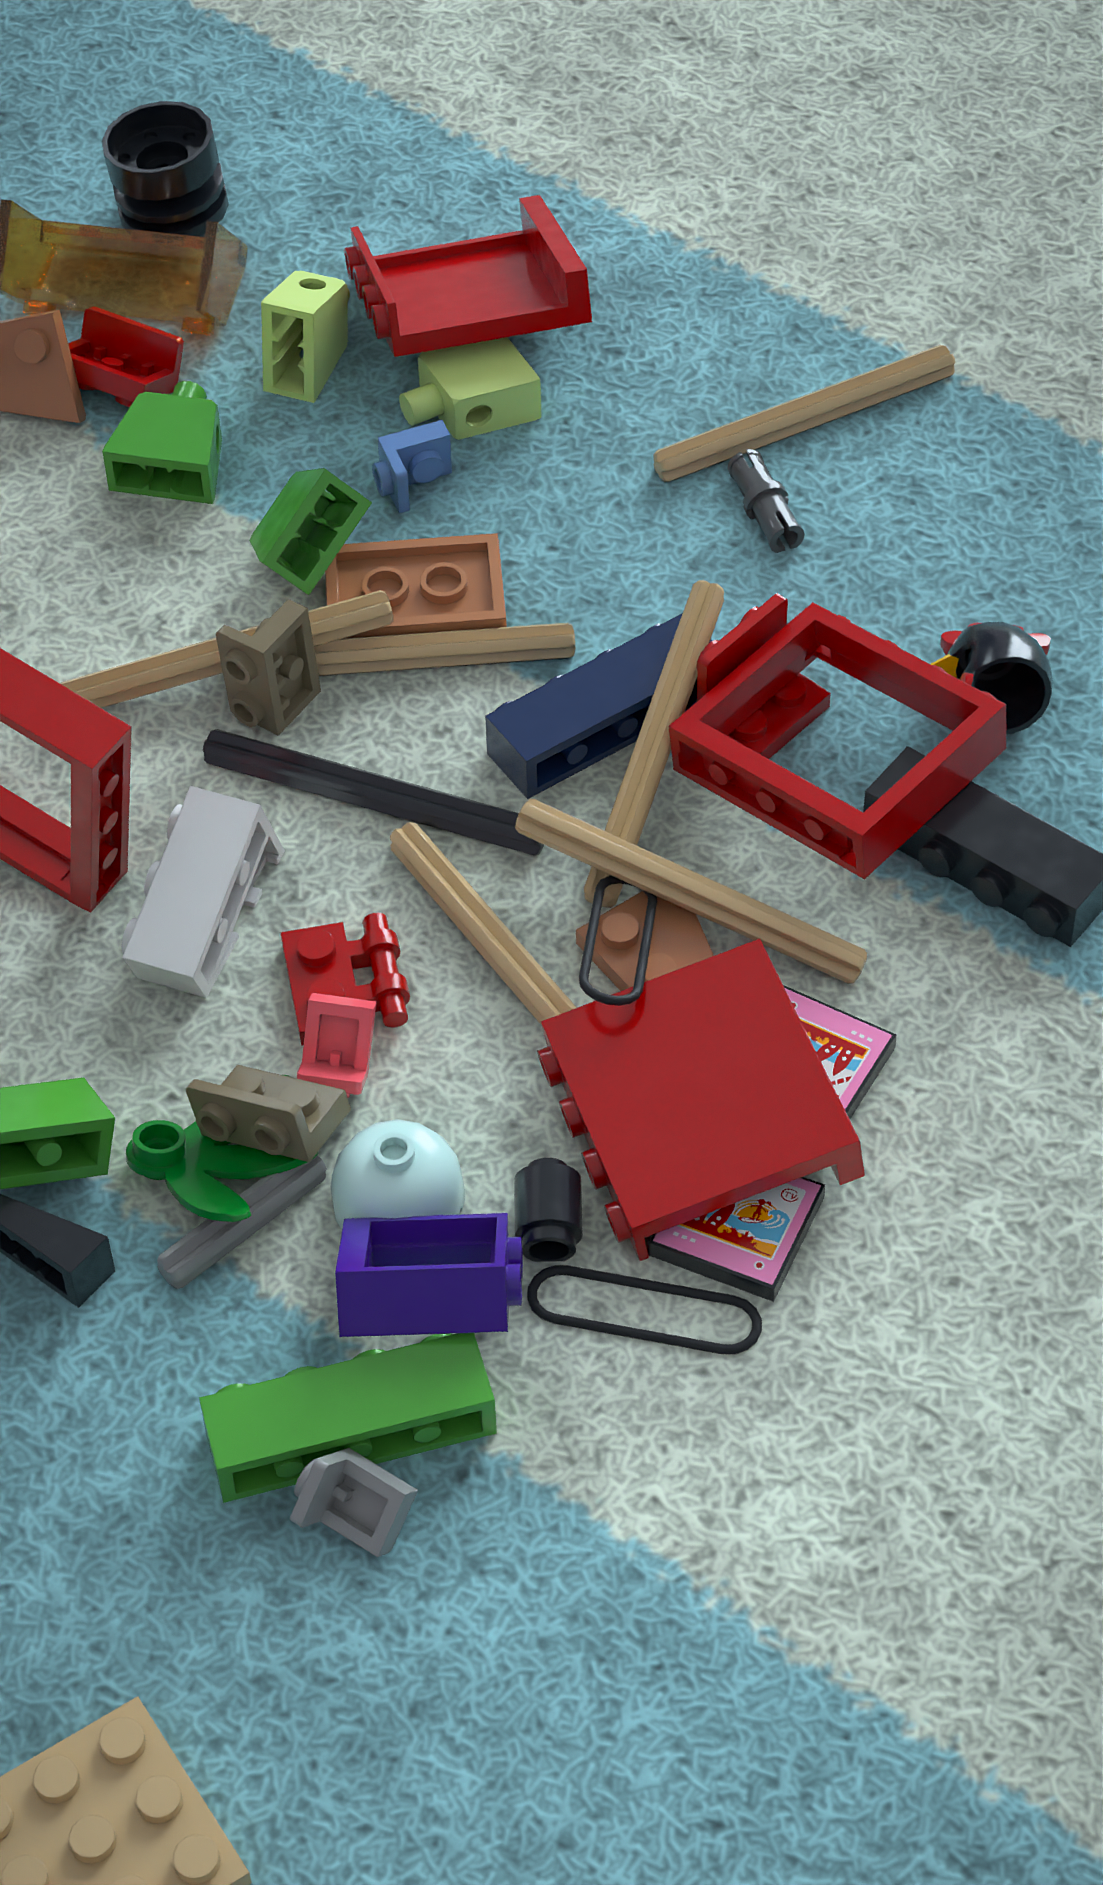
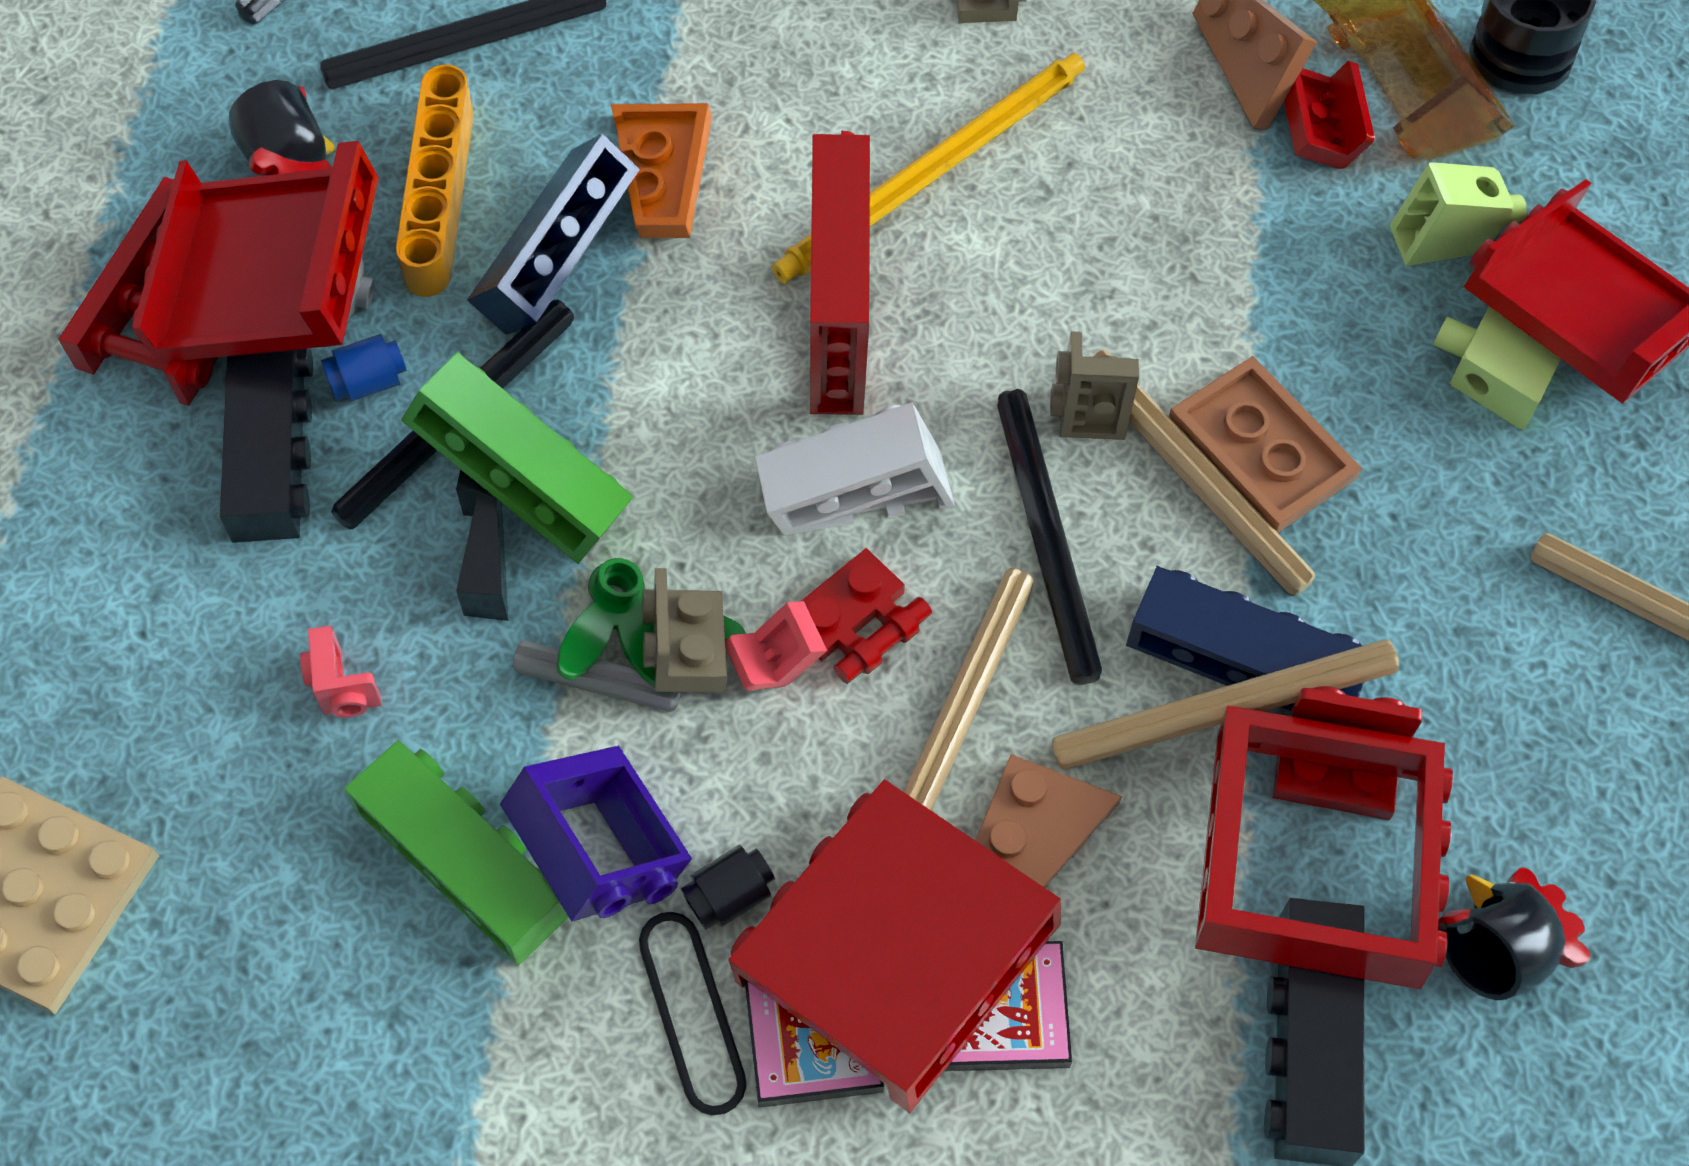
camera: 55 degrees right, 10 degrees up
(62, 1444) = (324, 671): none -> coral bracket
(167, 446) = (1271, 195): bright green torso -> none
(204, 661) = (1056, 327): tan axle -> none
(308, 526) = (1250, 333): bright green torso -> none
(353, 1500) = (389, 897): light grey bracket -> none
(396, 1173) = (688, 765): light aqua cylinder -> none
(411, 458) = (1391, 361): medium blue bracket -> none
(590, 942) = (1007, 815): black piece -> none
(691, 891) = (1098, 823): tan axle -> none
(765, 501) = (1566, 646): dark grey pin -> none

